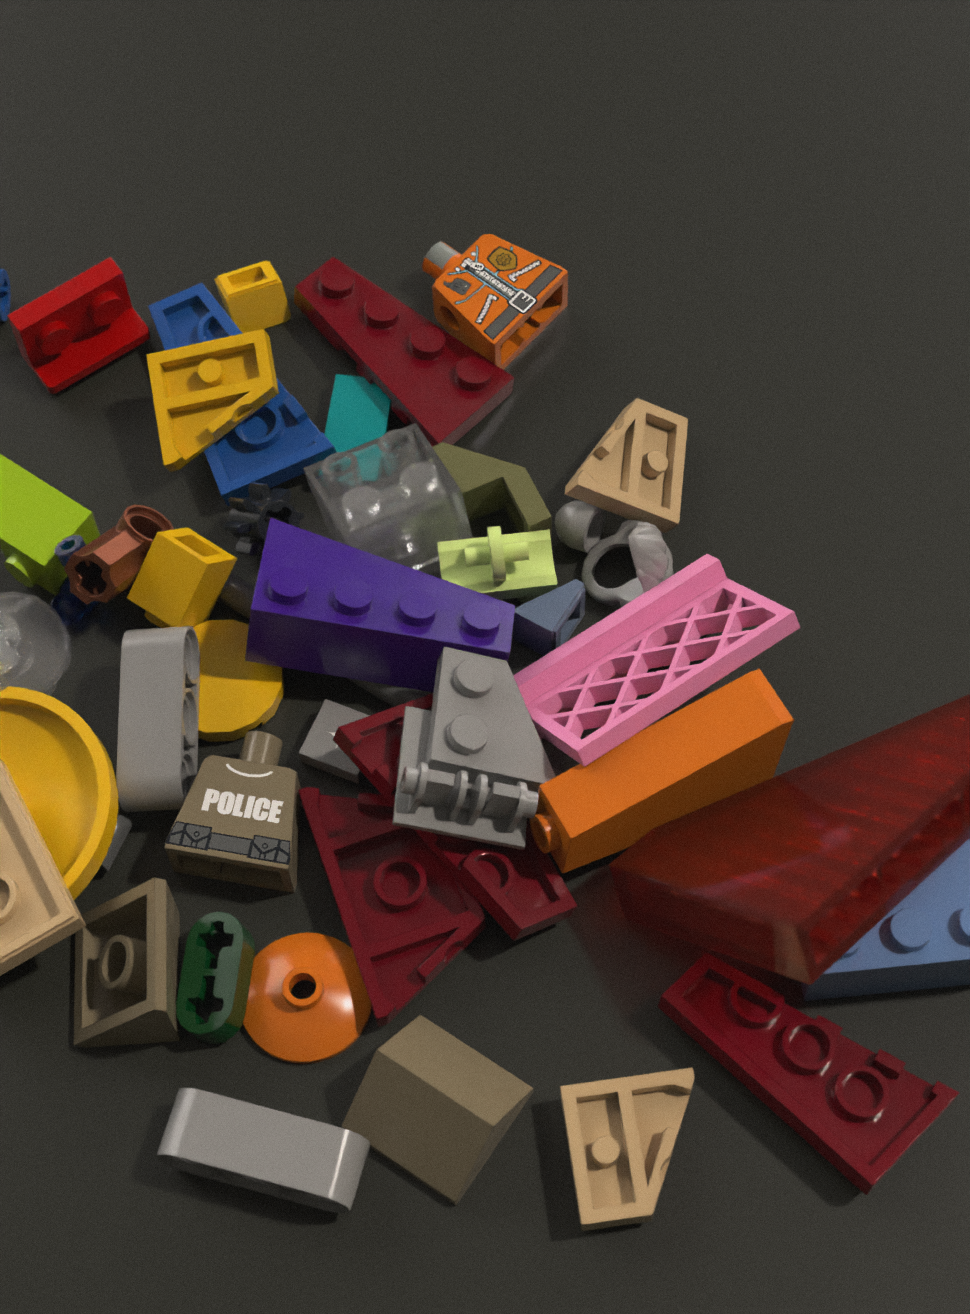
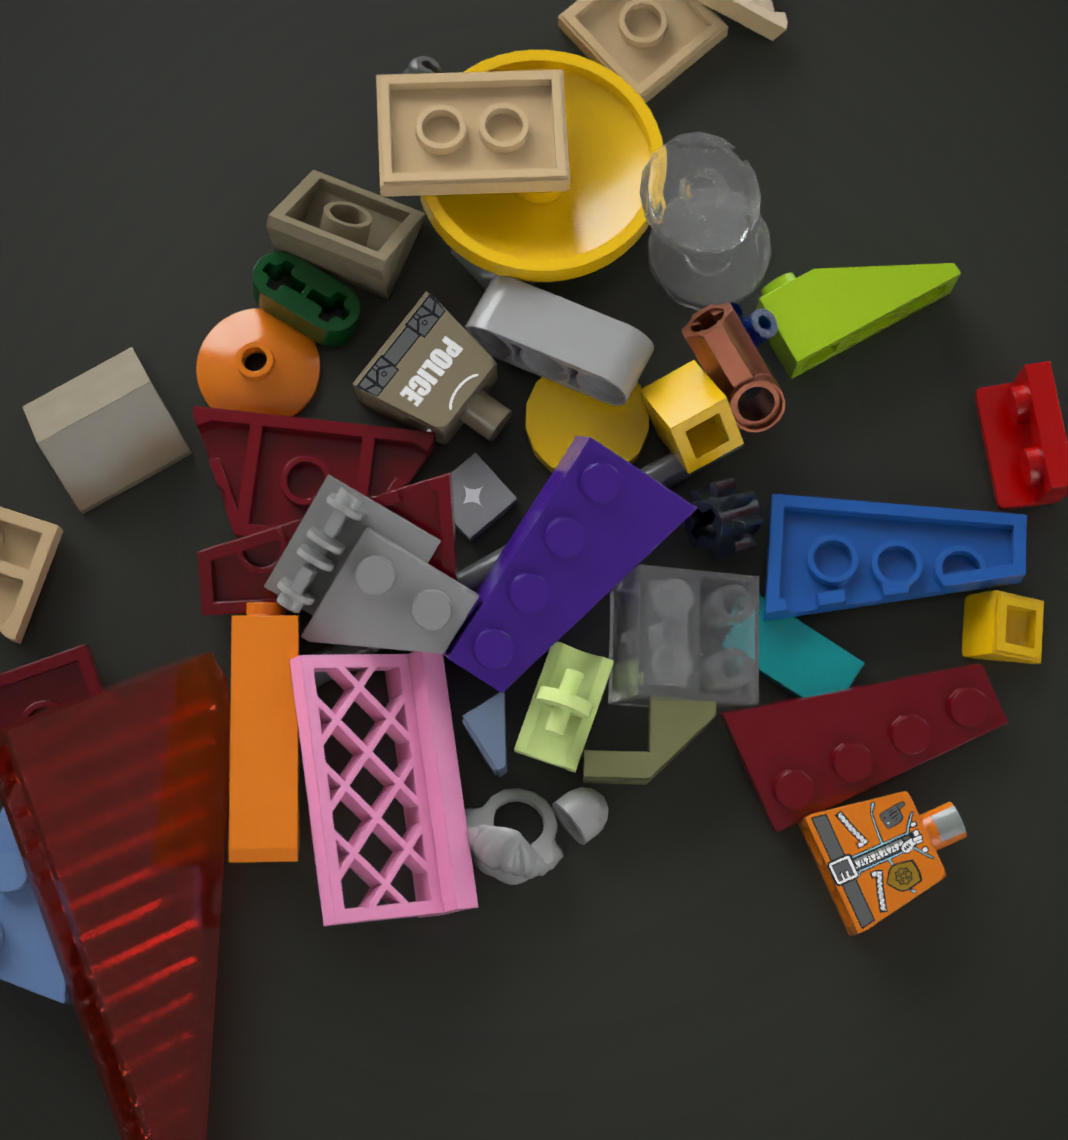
camera: 115 degrees right, 15 degrees up
(208, 391) = (882, 520): yellow wing -> none
(264, 1150) = (137, 273): light grey beam -> none
(637, 466) = (611, 894): tan wing -> none

